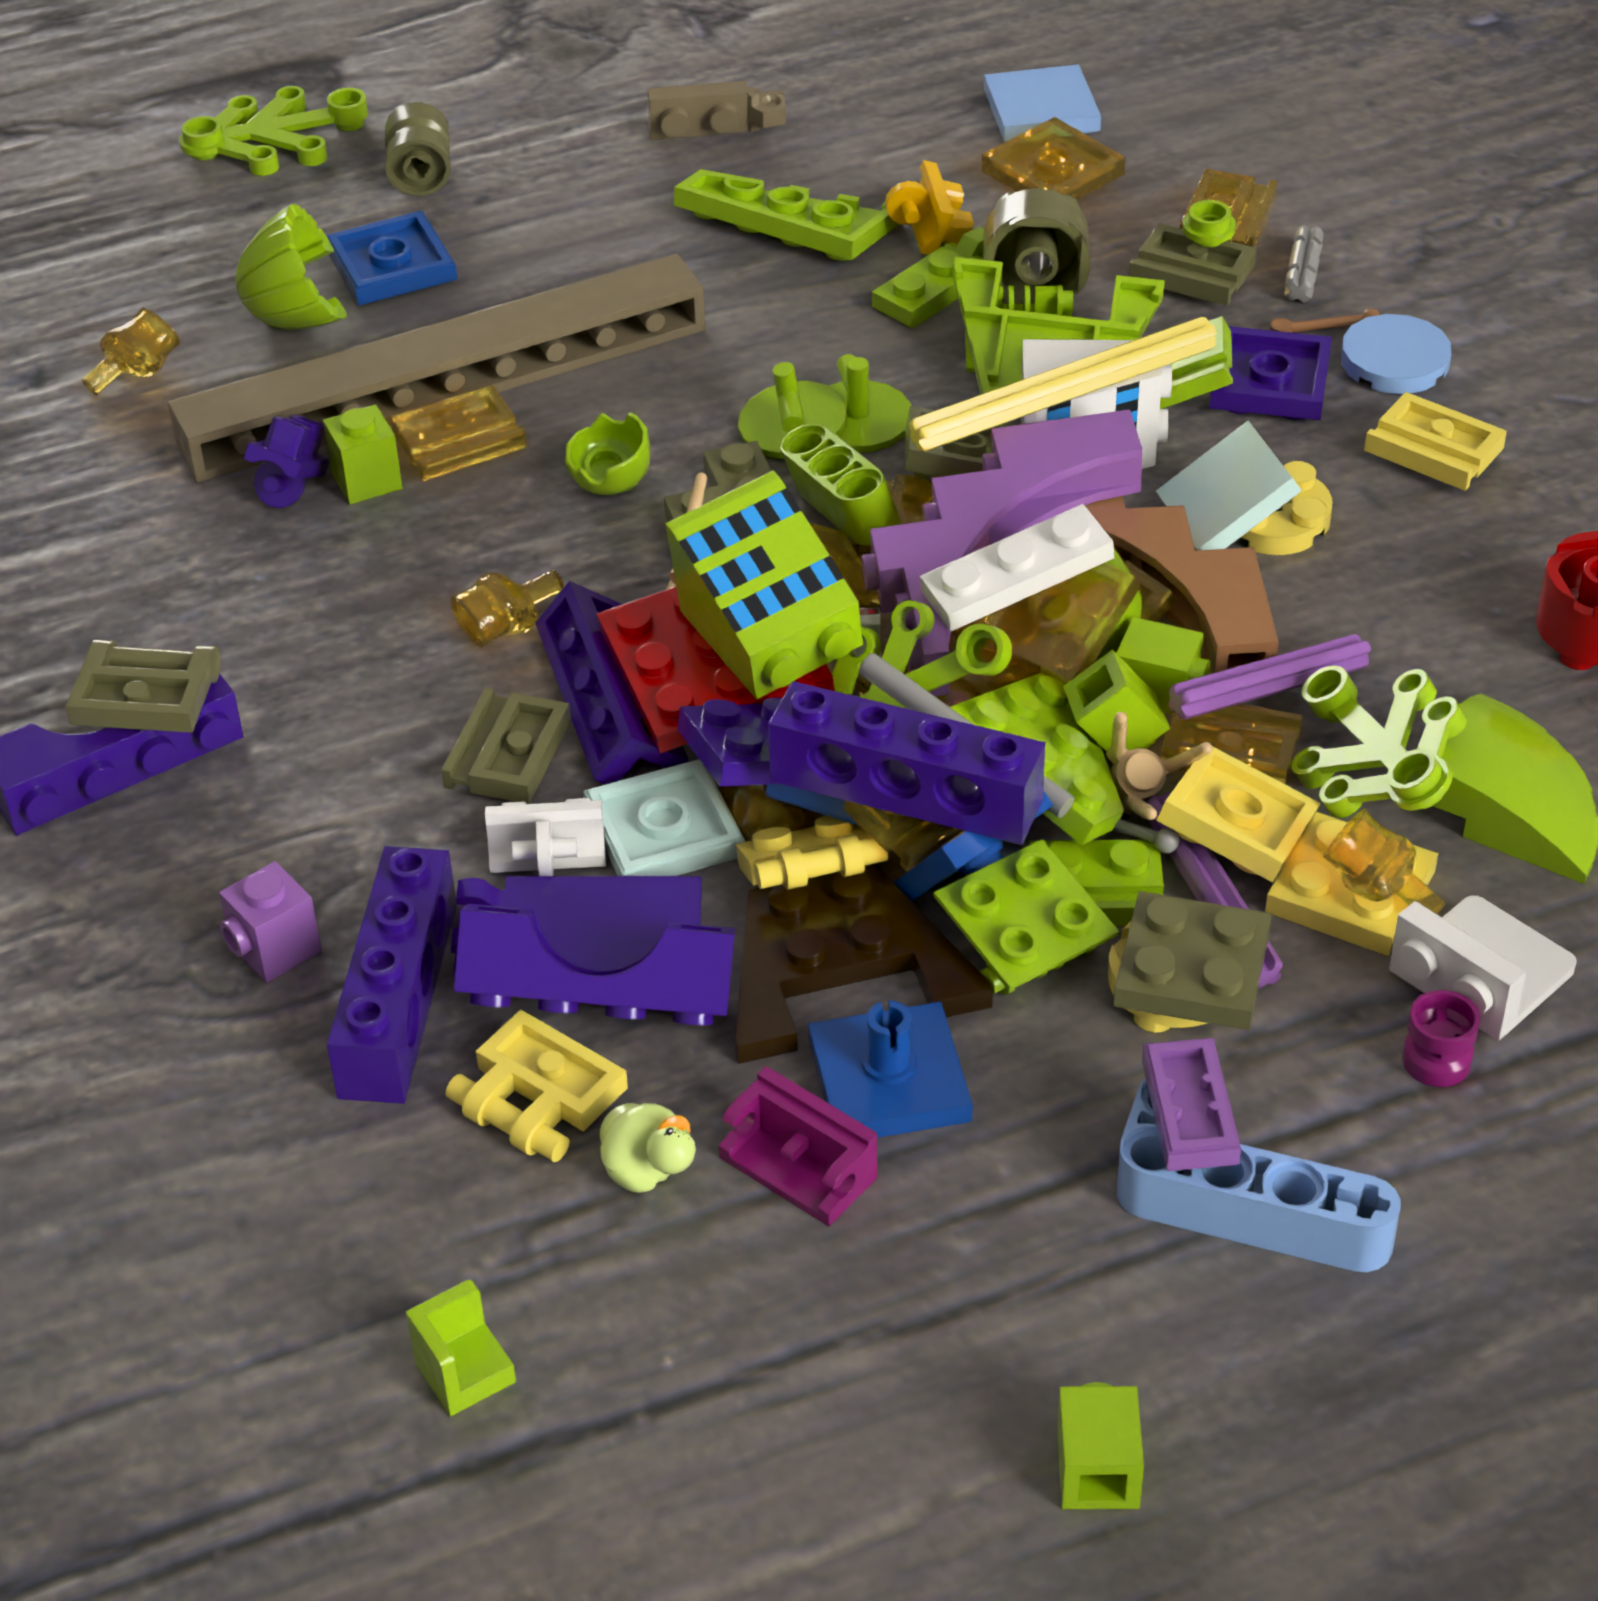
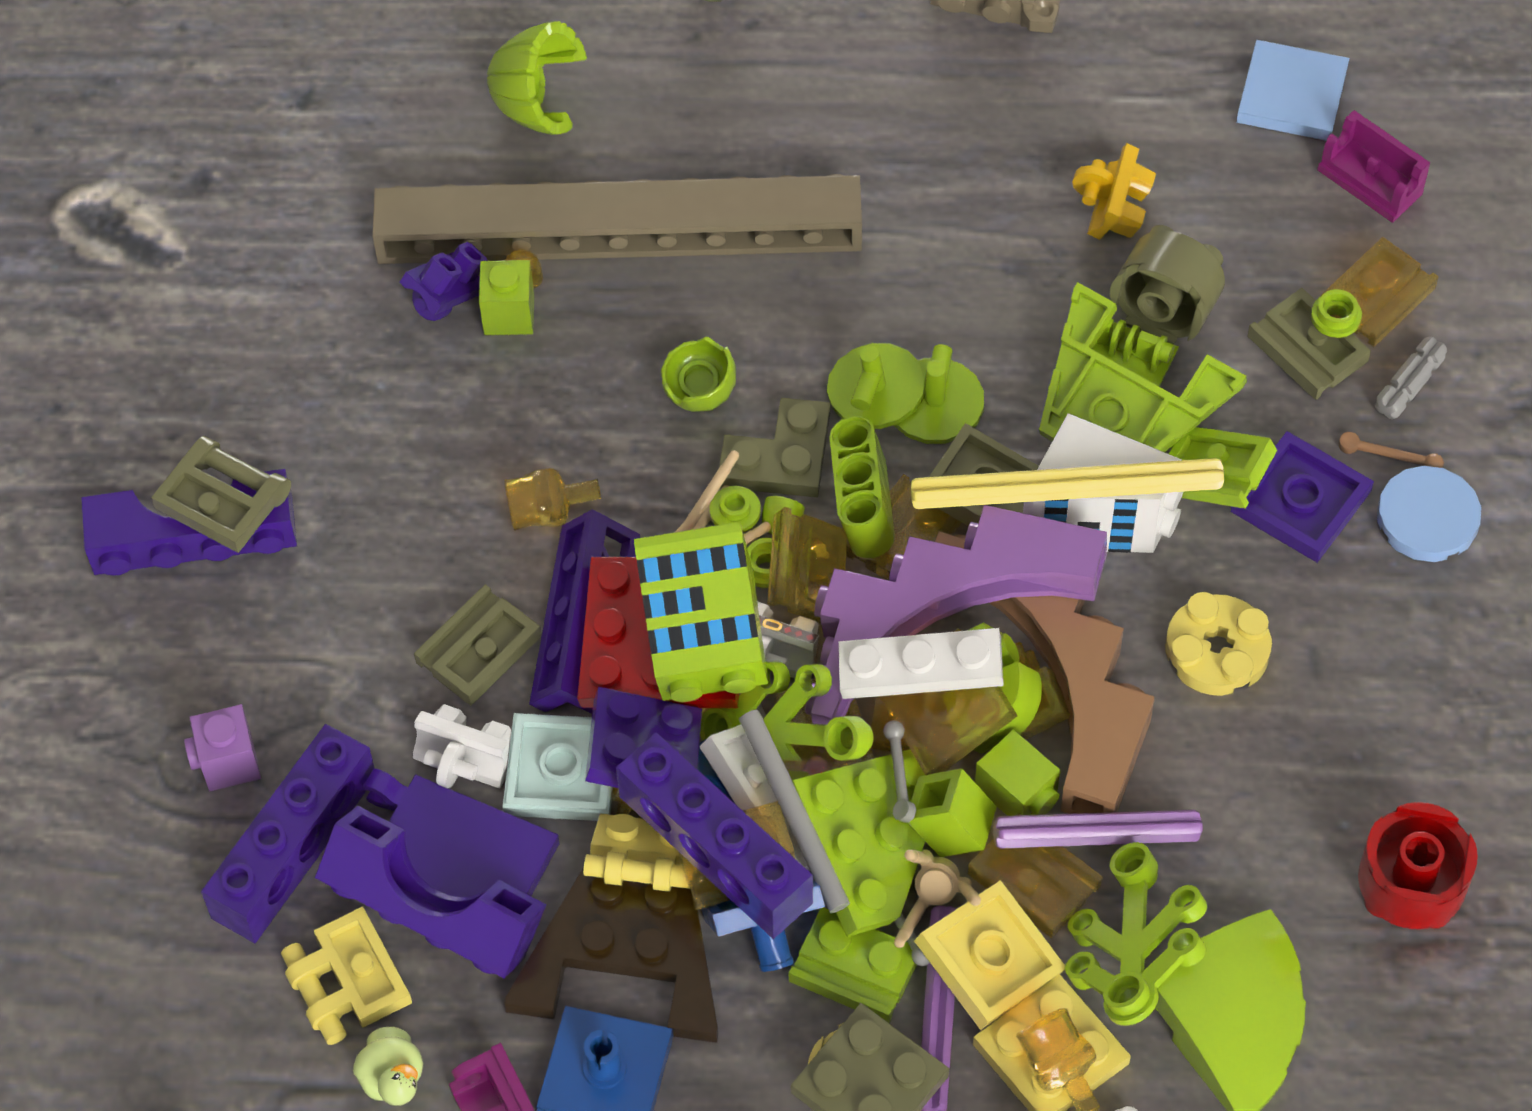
camera: 25 degrees right, 15 degrees up
(133, 348) = (383, 105): clear yellow piece -> none
(391, 258) = (636, 74): blue plate -> none
(458, 432) = (597, 298): clear yellow plate -> none
(785, 212) = (992, 148): lime wing -> none
(926, 284) = (1051, 281): lime hinge -> none
(1025, 916) = (769, 984): lime hinge -> none
(1054, 159) = (1255, 176): clear yellow plate -> none
(1070, 709) = (903, 809): none -> light grey hinge
(1160, 125) = (1374, 167): none -> magenta hinge
(1230, 489) = (1174, 623): light aqua tile -> none
(1435, 440) = (1396, 629): light yellow plate -> none

